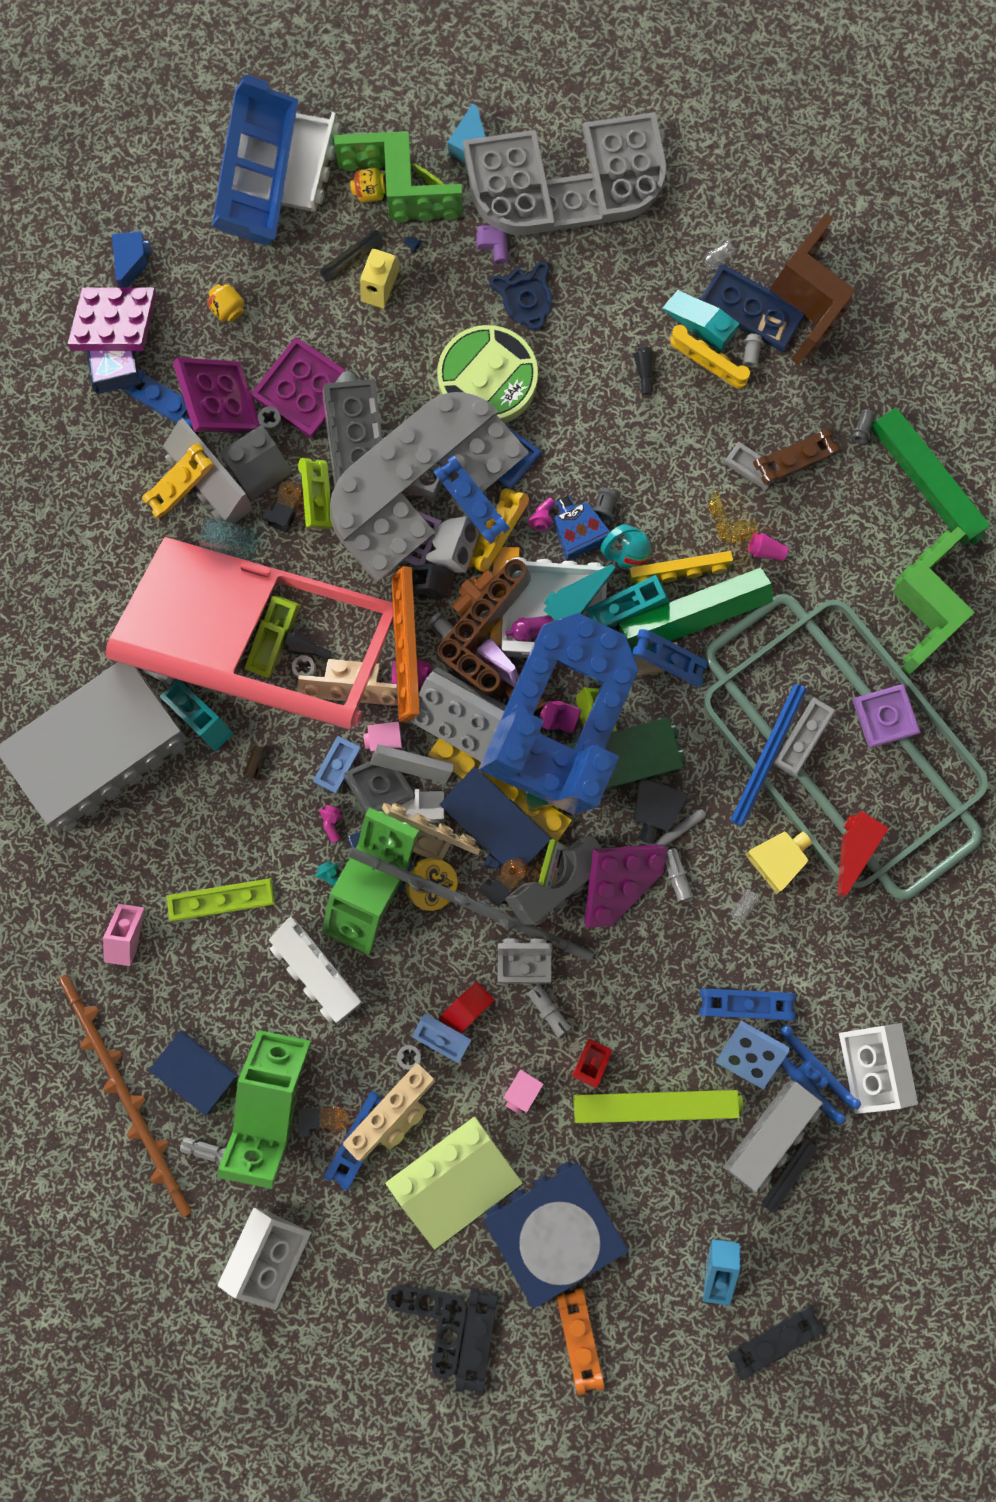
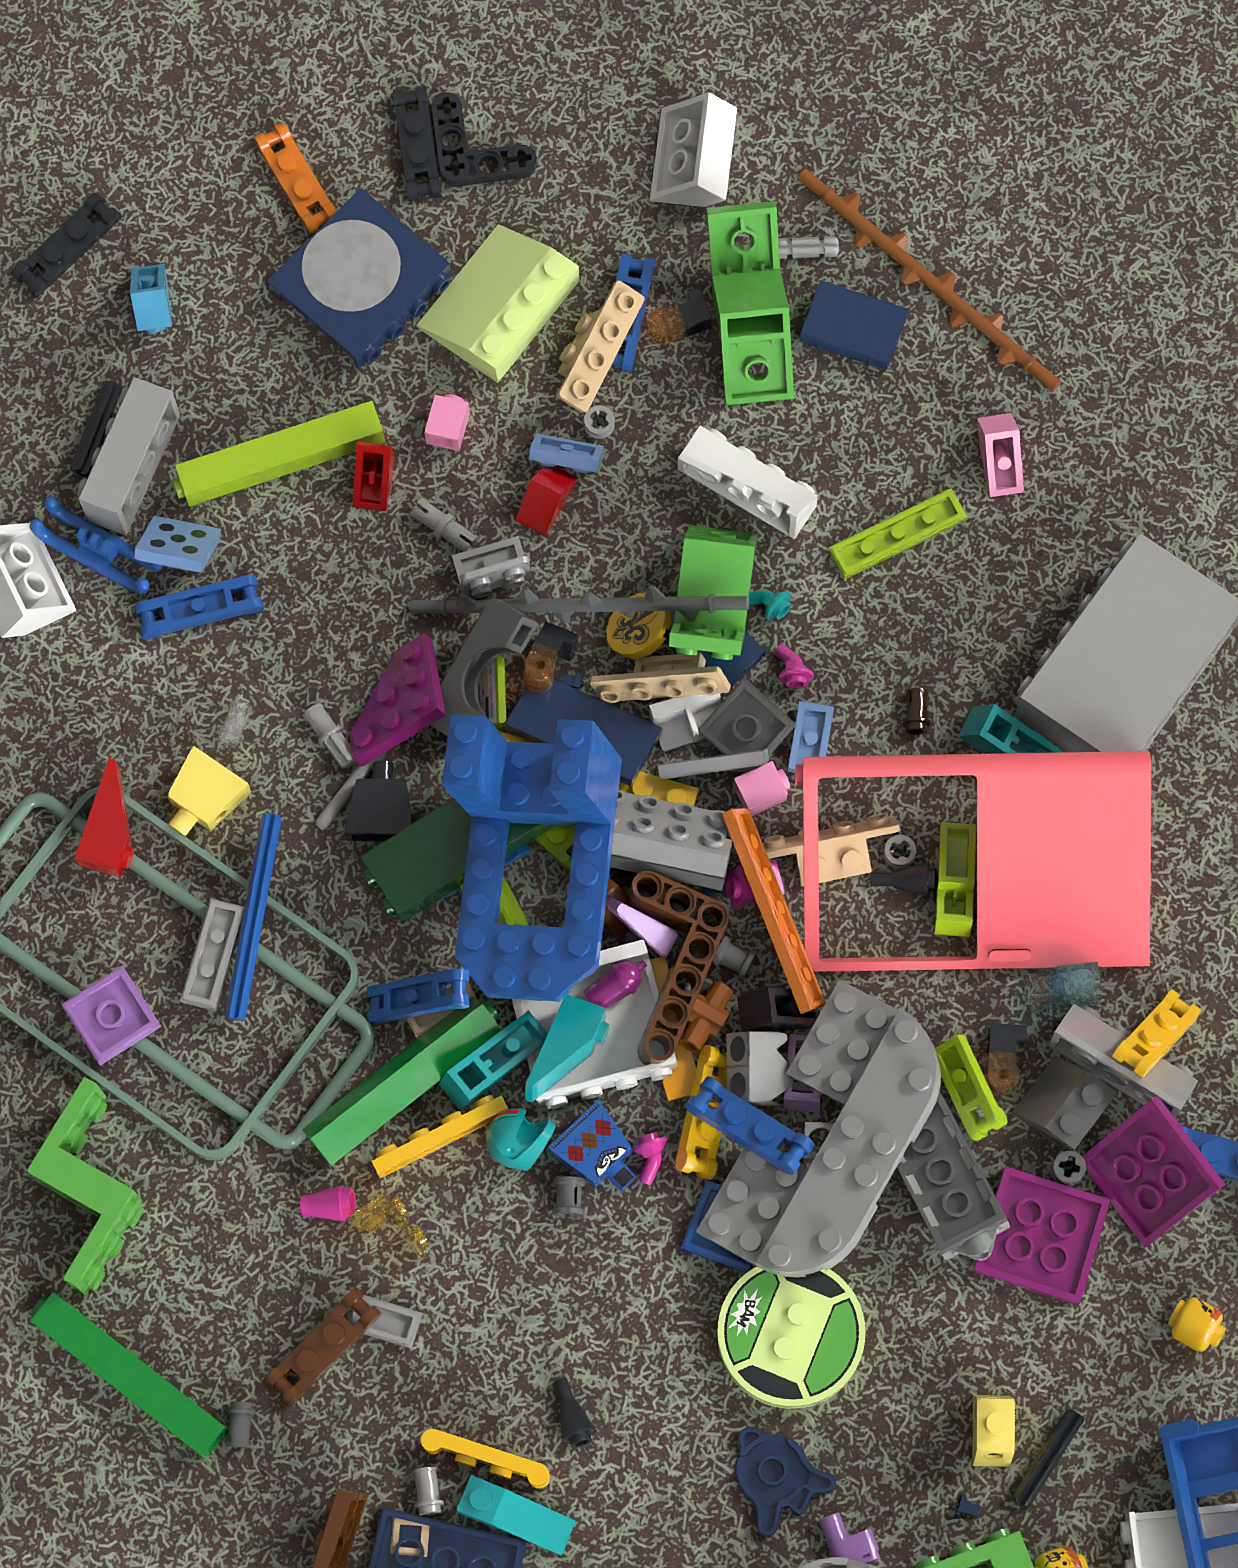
camera: 165 degrees right, 5 degrees down
(560, 716) = (541, 889): dark pink bracket -> none

